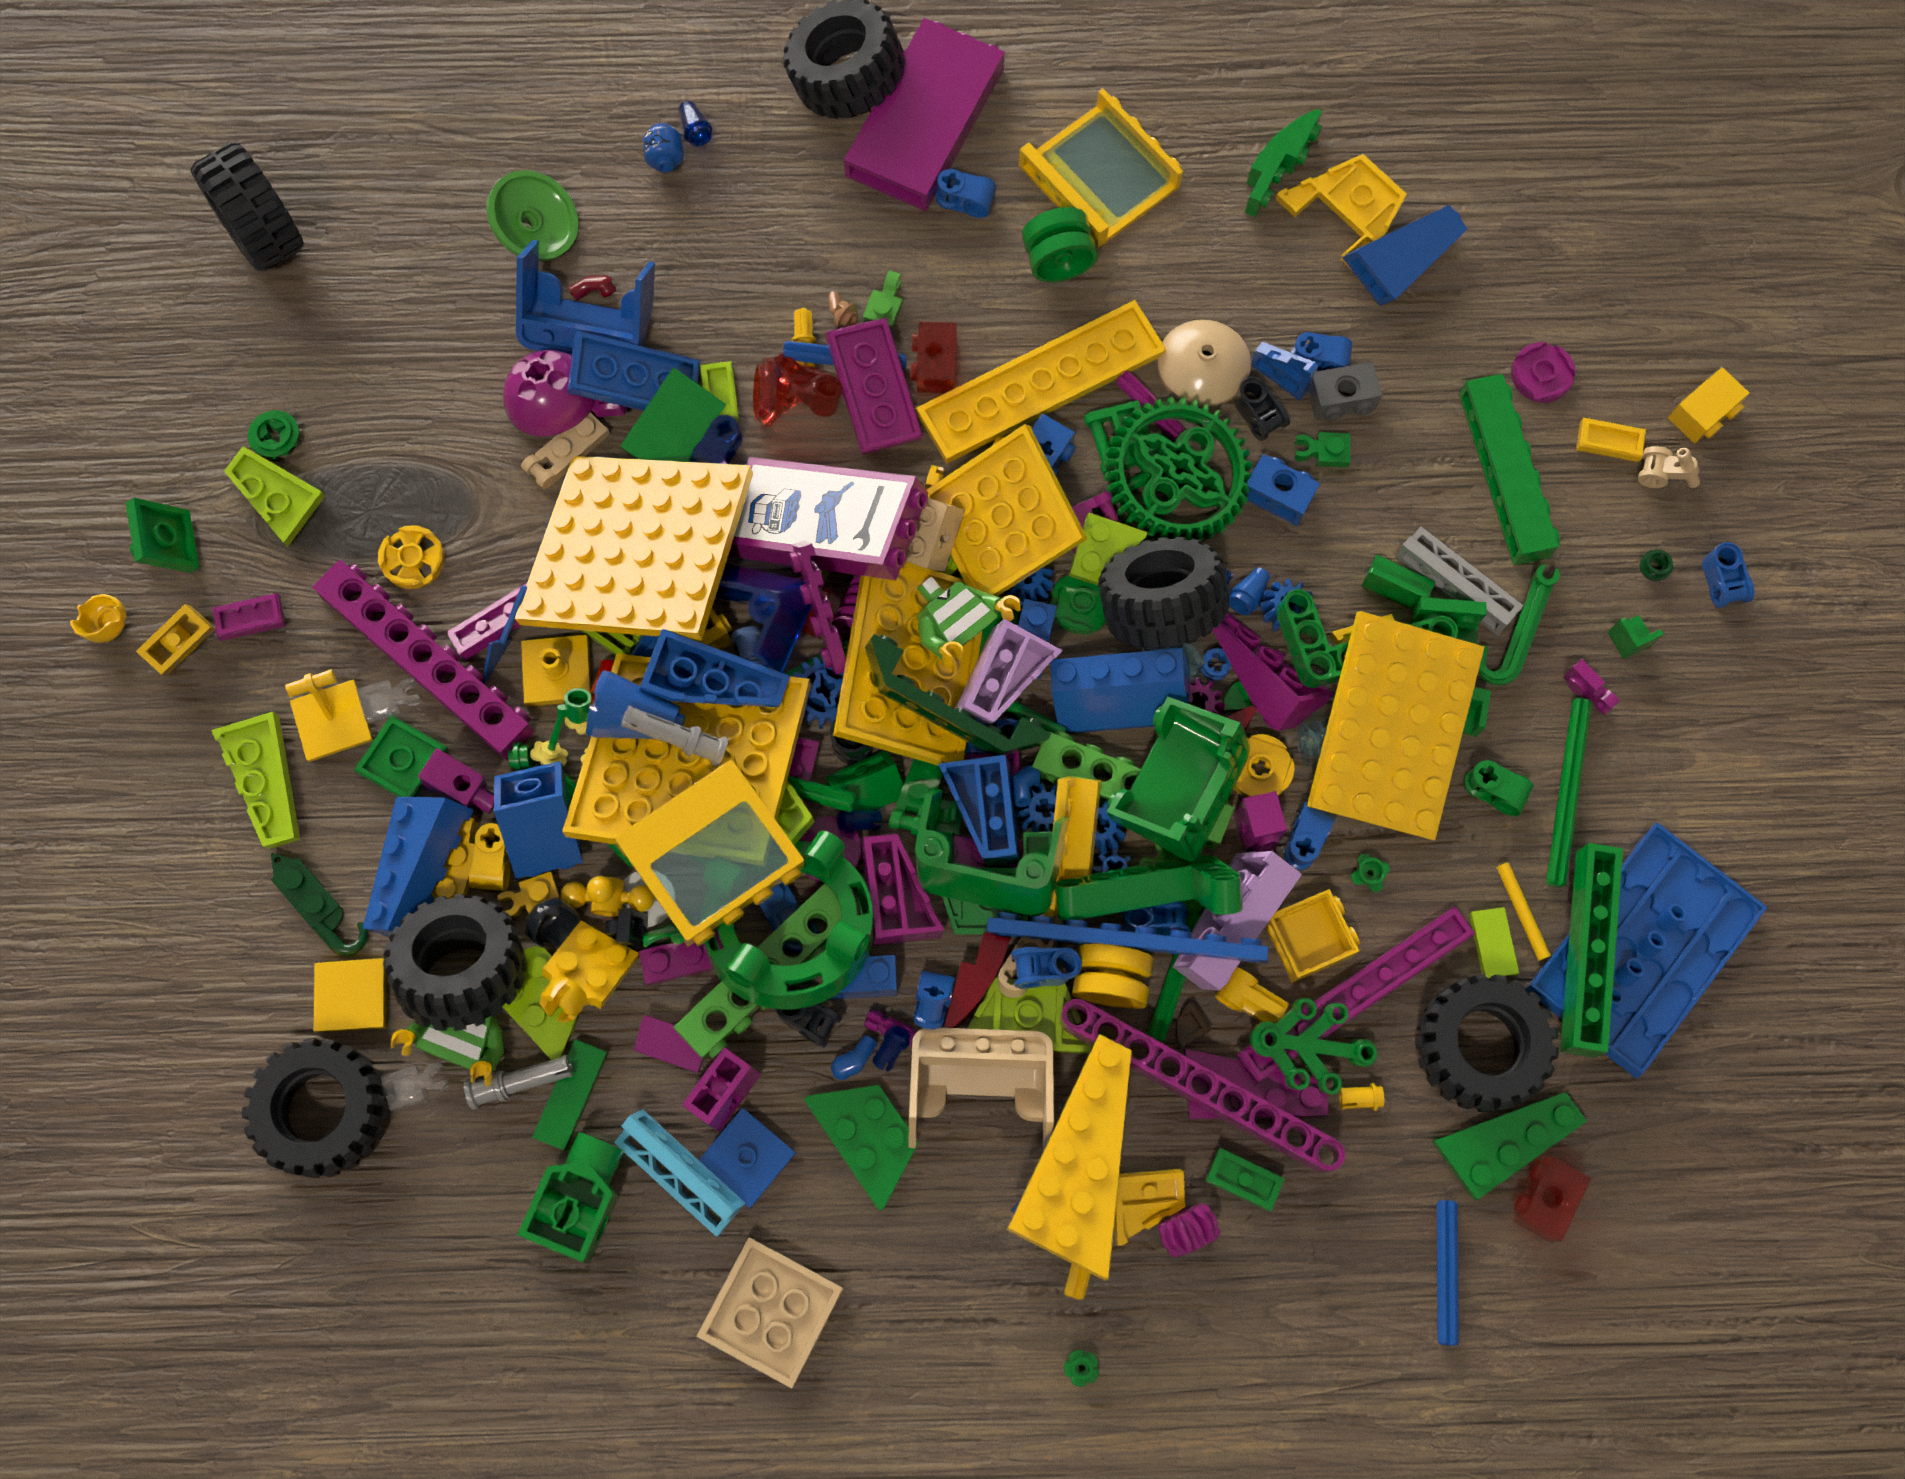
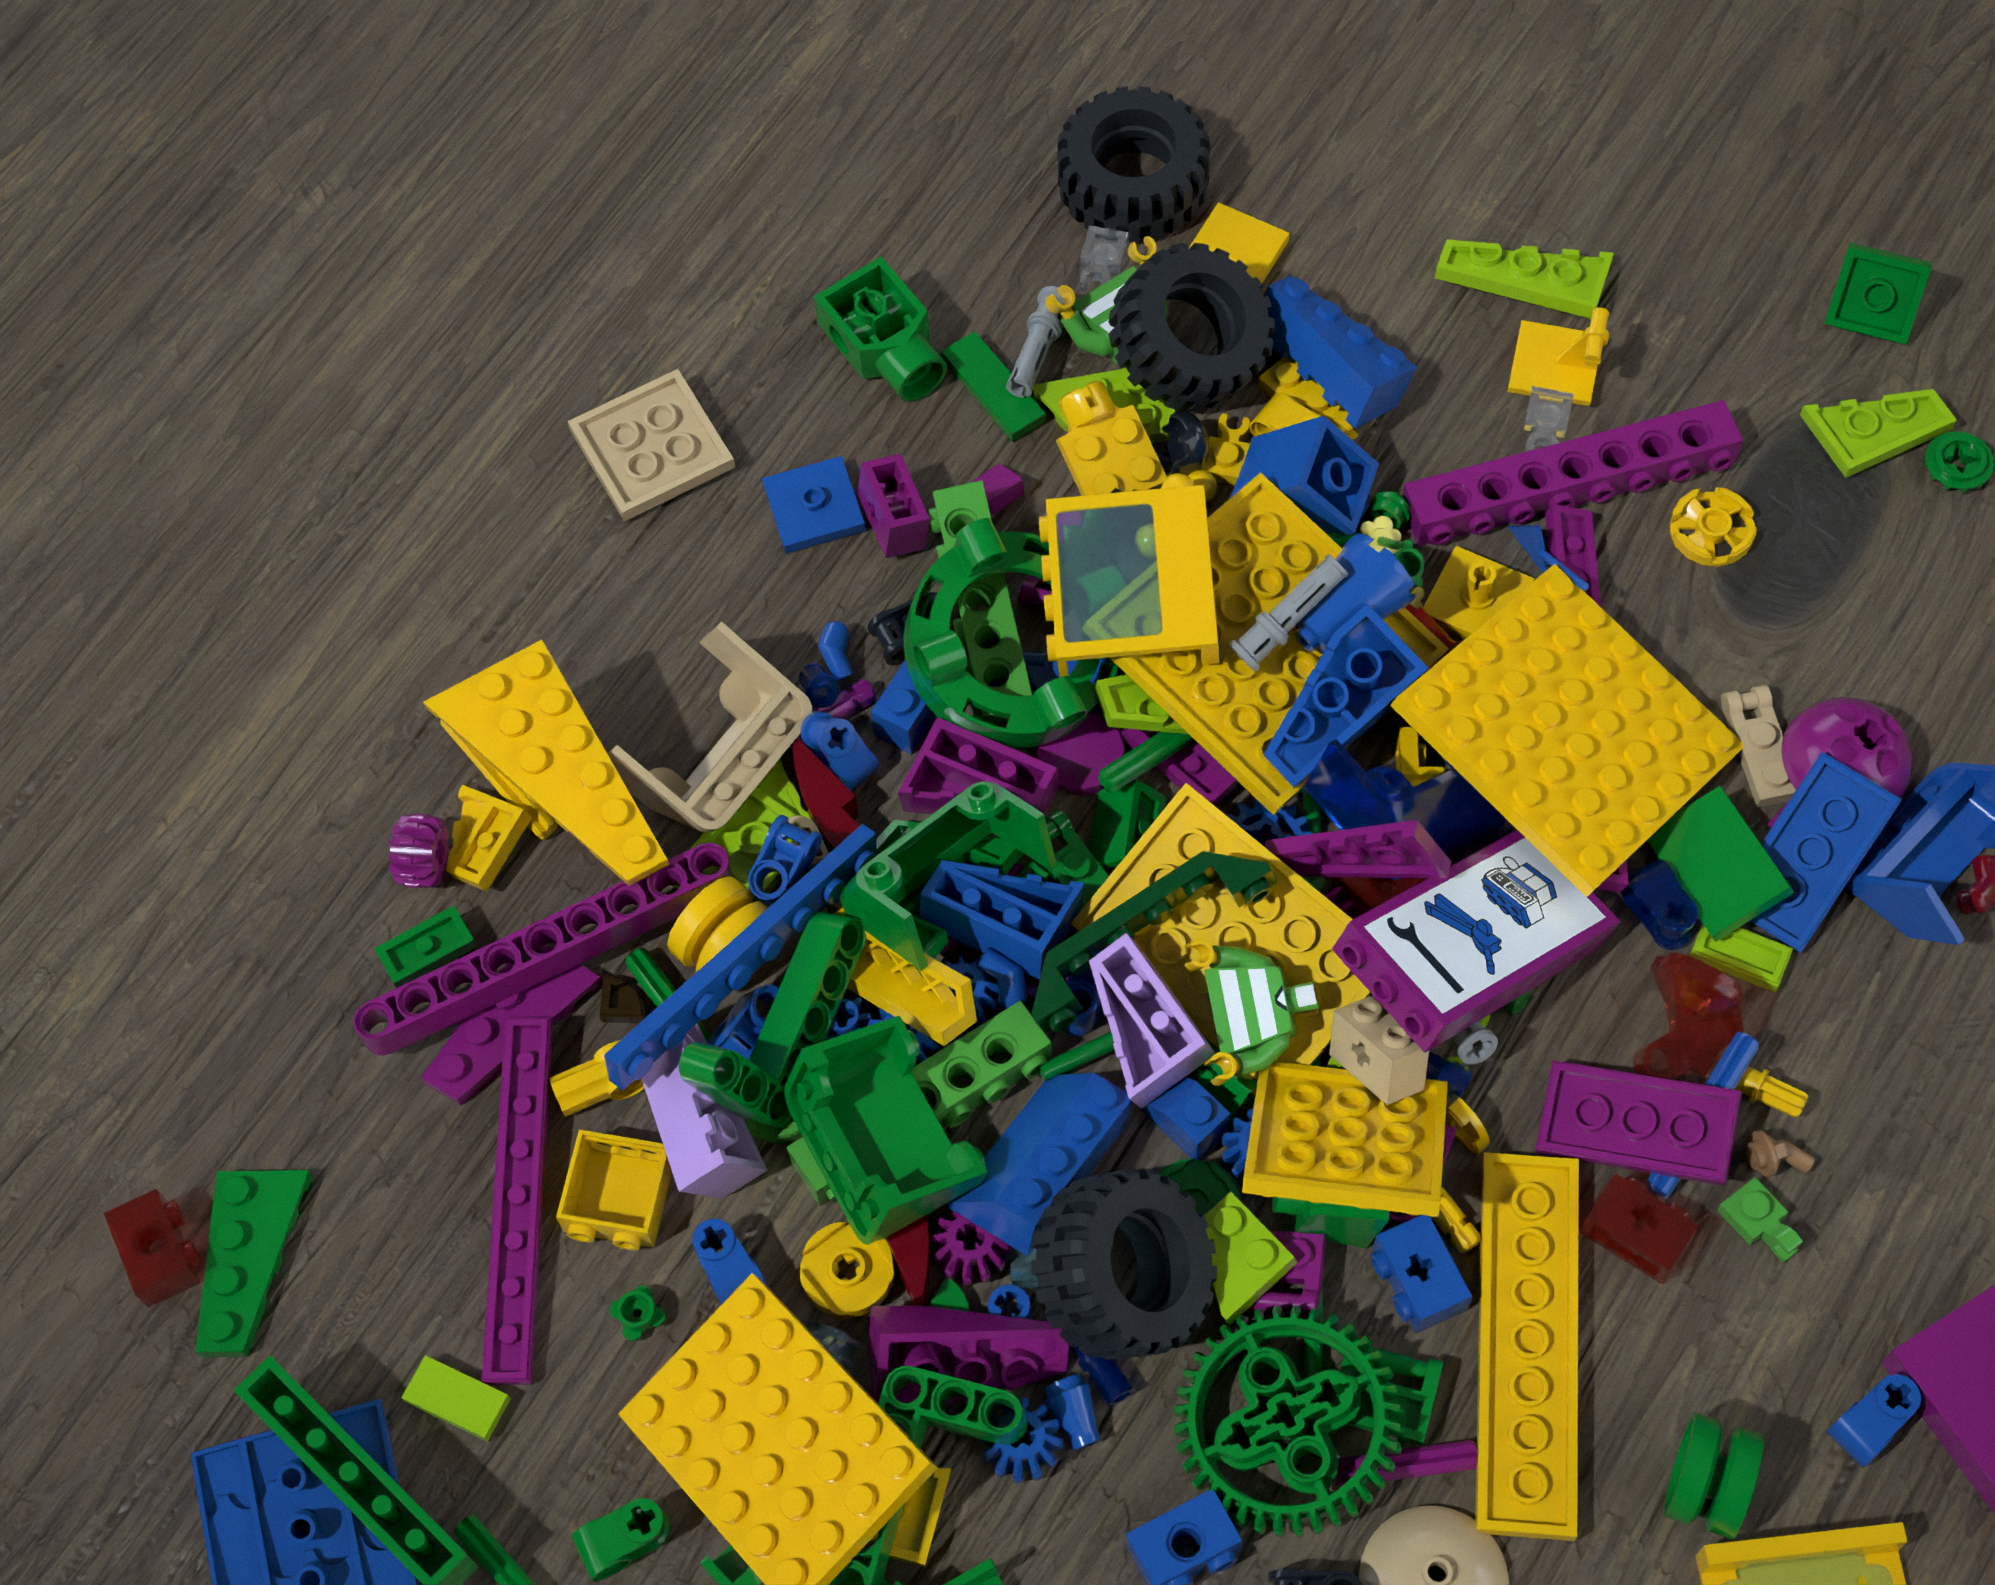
camera: 130 degrees right, 10 degrees down
(100, 619) = (1809, 206): yellow hair -> none
(176, 640) = (1739, 257): yellow brick -> none
(248, 617) = (1731, 340): magenta plate -> none
(314, 903) = (1362, 261): dark green plate -> none
(398, 758) = (1467, 407): green tile -> none
(444, 777) = (1402, 428): magenta torso -> none
(684, 1169) = (844, 435): medium azure fence -> none
(858, 820) = (1087, 796): clear blue pin -> none
(867, 1136) = (765, 616): green wing -> none
(1090, 1373) = (382, 693): green plate -> none
(1260, 822) = (777, 1206): magenta brick -> none
(1308, 1045) = (501, 1094): green plant -> none
(1361, 1097) = (410, 1125): yellow pin -> none
(1447, 1273) = (177, 1092): blue axle -> none
(1523, 911) = (464, 1462): yellow bar -> none
(1523, 1019) = (315, 1248): black tyre -> none

